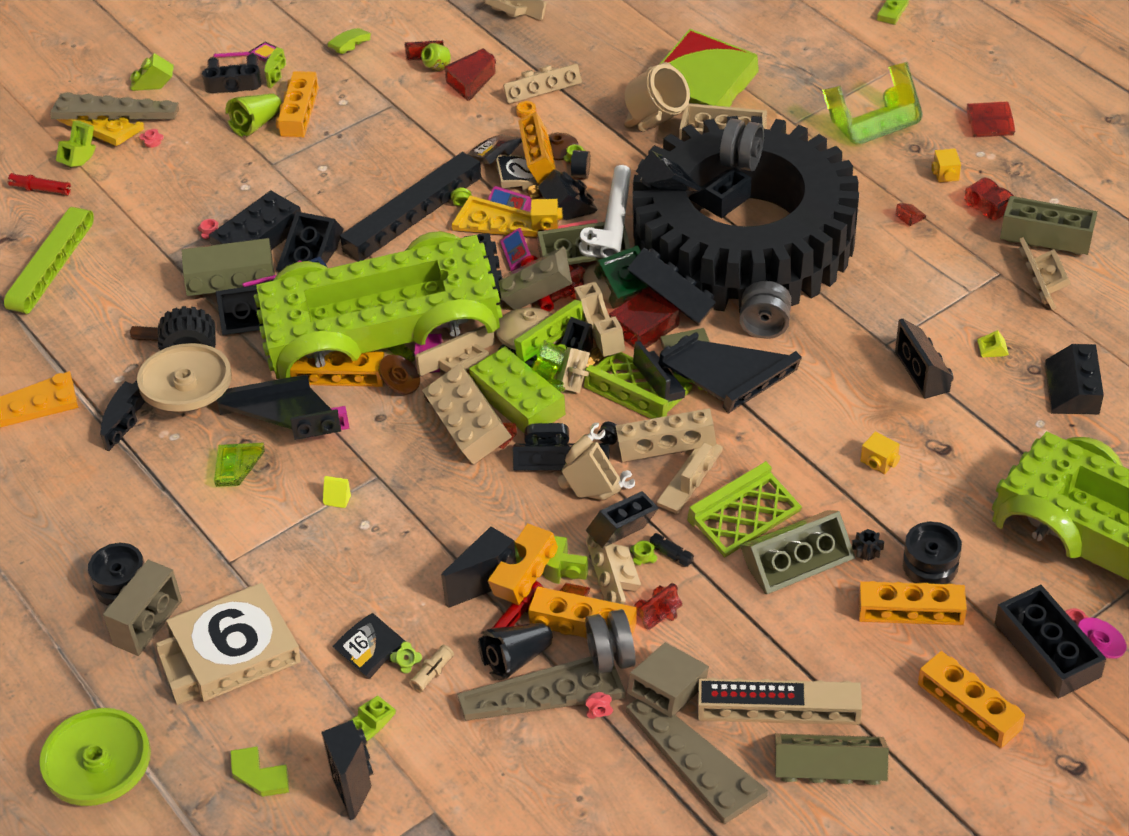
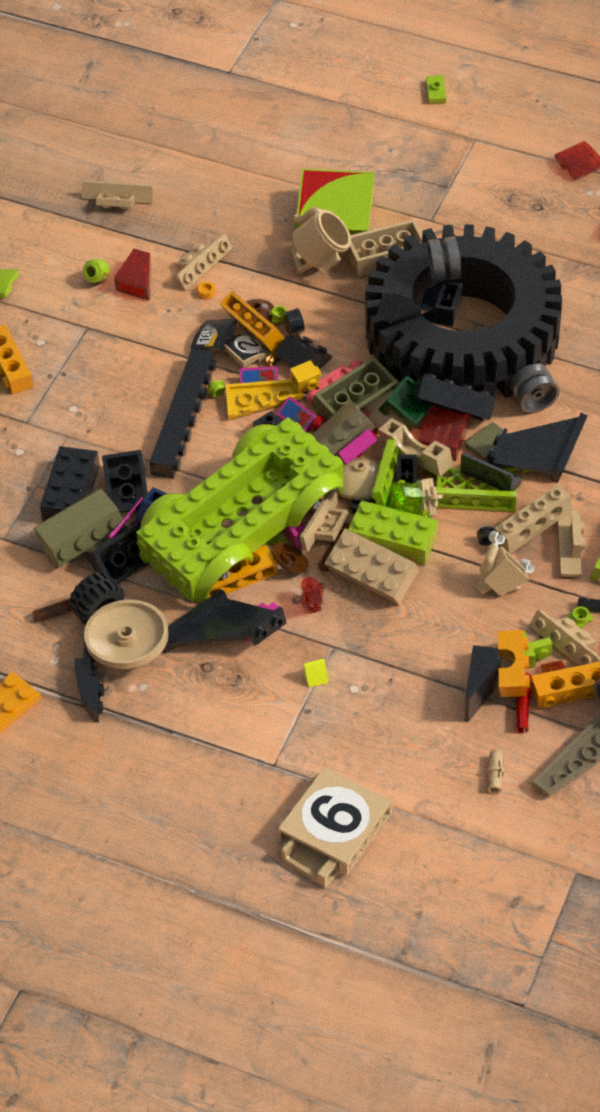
camera: 30 degrees left, 5 degrees up
(95, 756) = (306, 953): lime dish -> none
(113, 569) = (204, 813): black wheel -> none
(142, 607) = (246, 828): dark tan brick -> none
(207, 227) = (24, 500): coral plate -> none
(236, 462) = (215, 685): clear neon green wing -> none
(263, 781) = (420, 908): lime tile -> none
(349, 764) = (506, 868): black slope -> none
(369, 644) = (436, 776): slope -> none
(373, 716) = (479, 833): lime slope -> none
(388, 416) = (312, 594): none -> clear red hips
(398, 657) = (476, 770): lime plate -> none
(414, 49) = (75, 268): clear red slope -> none
(512, 647) = (545, 730): black cone -> none
(540, 294) = (357, 446): none -> dark pink slope
(544, 455) = (455, 572): black fence -> none
(547, 433) = (441, 557): black beam -> none
(609, 241) = (378, 380): white axle -> none
(621, 519) = (556, 598): black brick -> none
(900, 109) = (506, 183): clear neon green windscreen -> none
(909, 213) = (575, 265): clear red slope -> none
(946, 165) = (576, 213): yellow brick -> none

